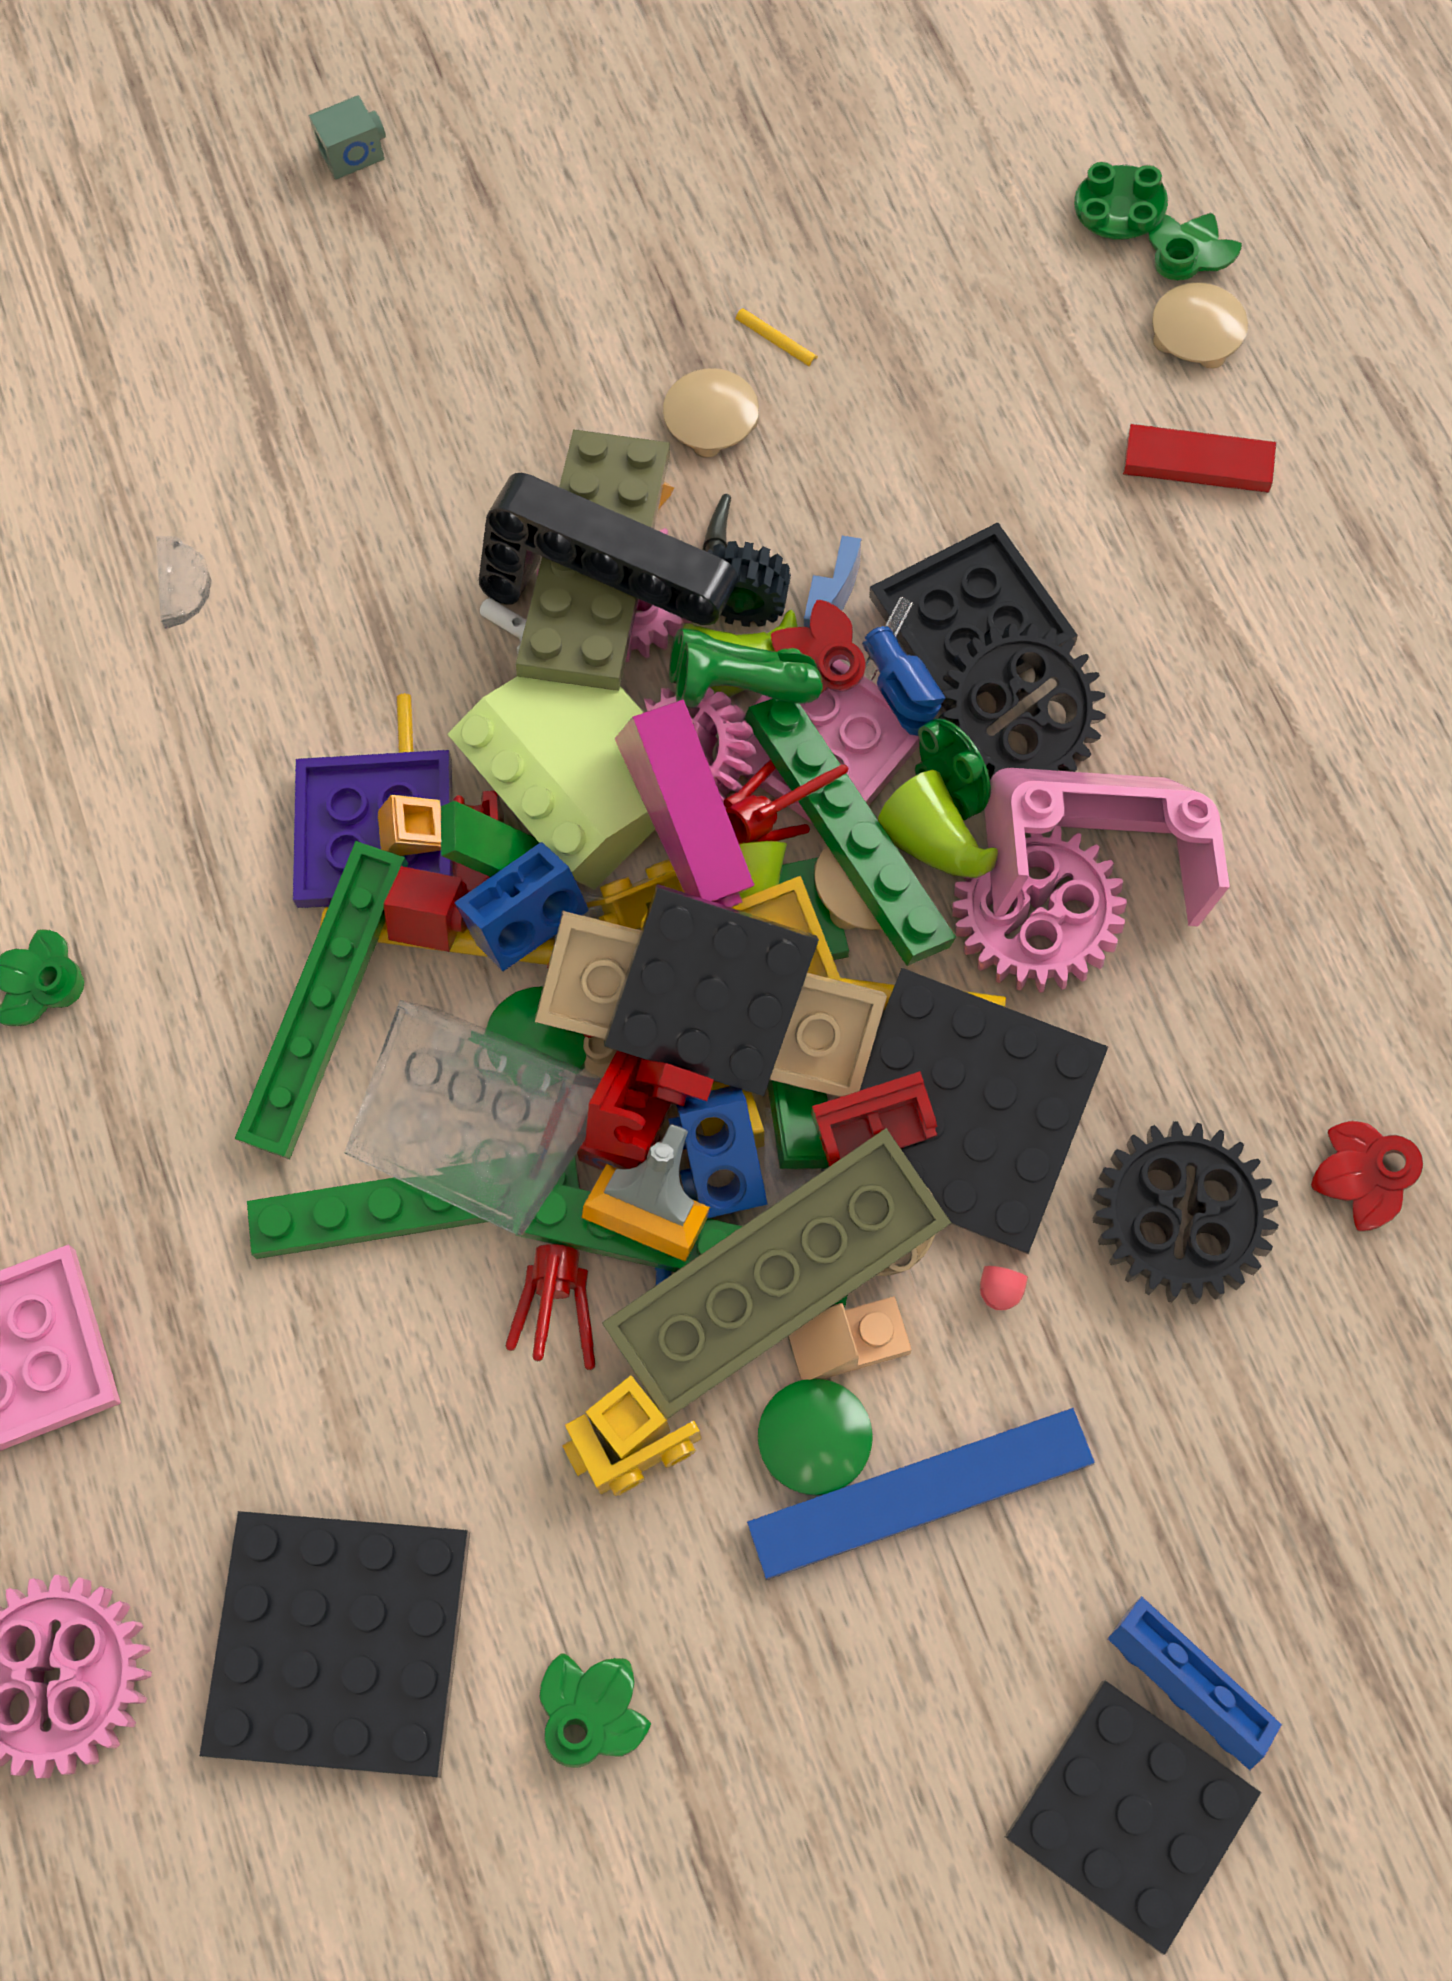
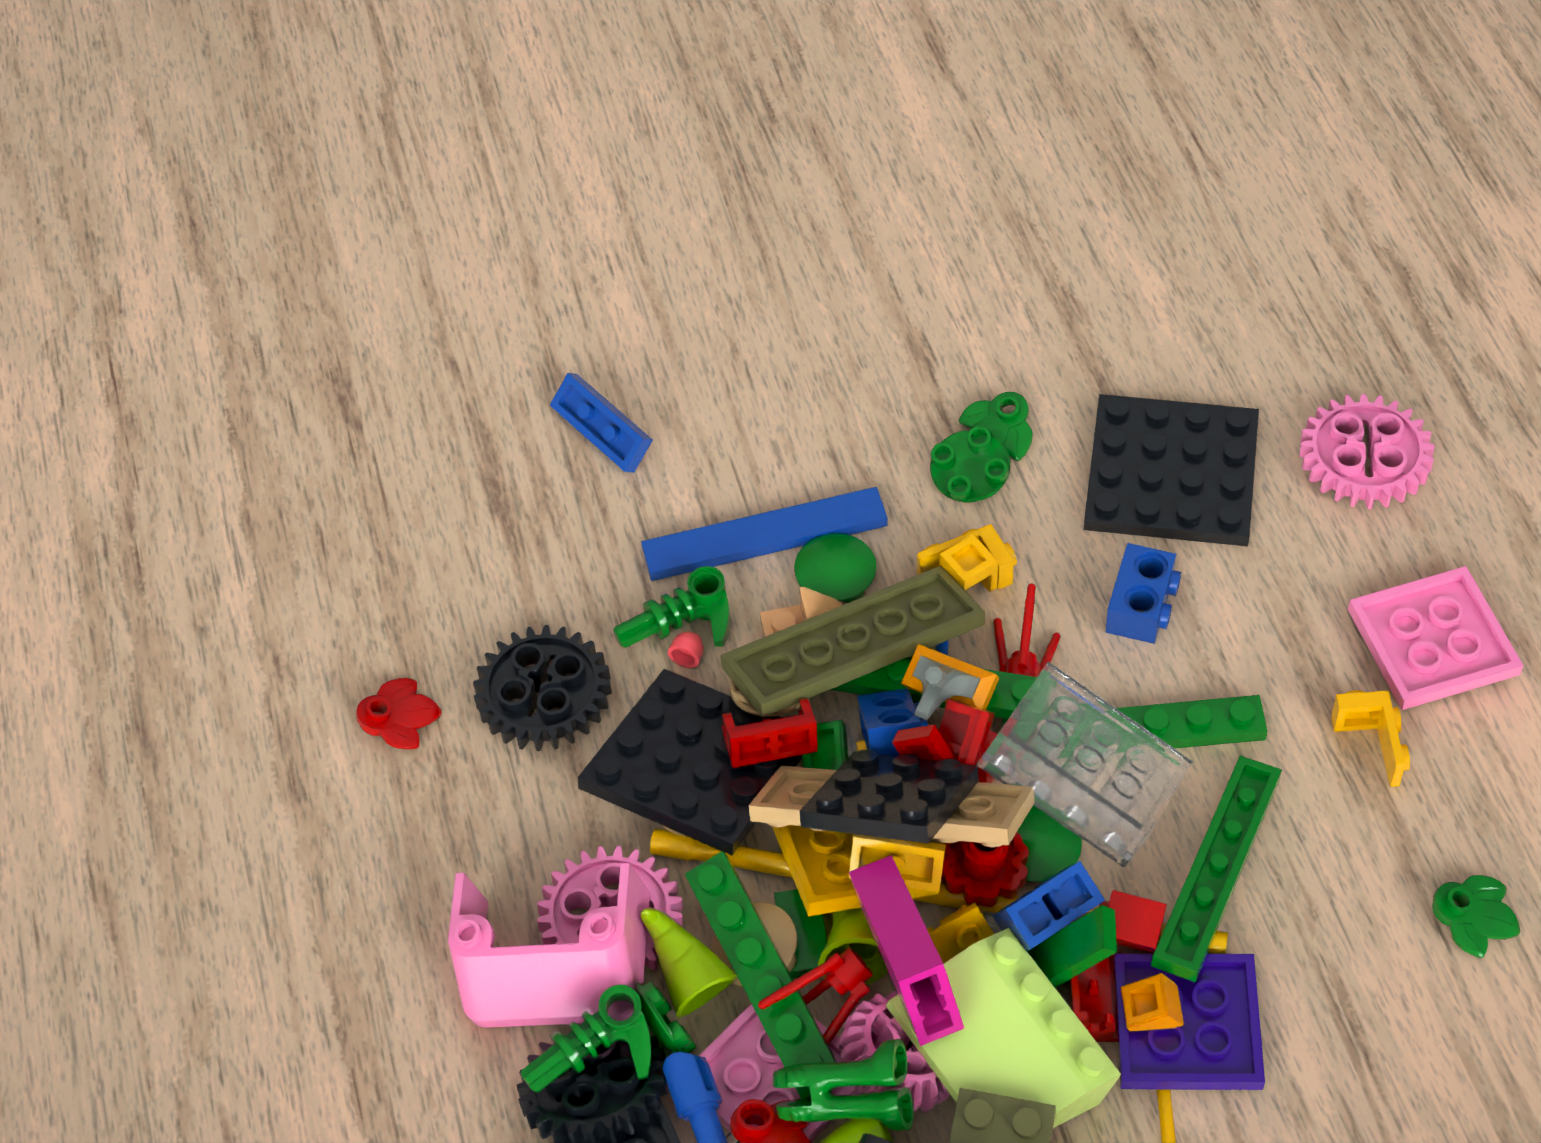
camera: 175 degrees left, 15 degrees down
(123, 1233) = (1374, 711): none -> yellow bracket
(407, 1403) = (1137, 592): none -> blue brick
(631, 1626) = (970, 465): none -> green dish
(1002, 727) = (595, 1030): none -> green piece
(1018, 1349) = (684, 605): none -> green piece
(1133, 1816) = (655, 368): black plate -> none

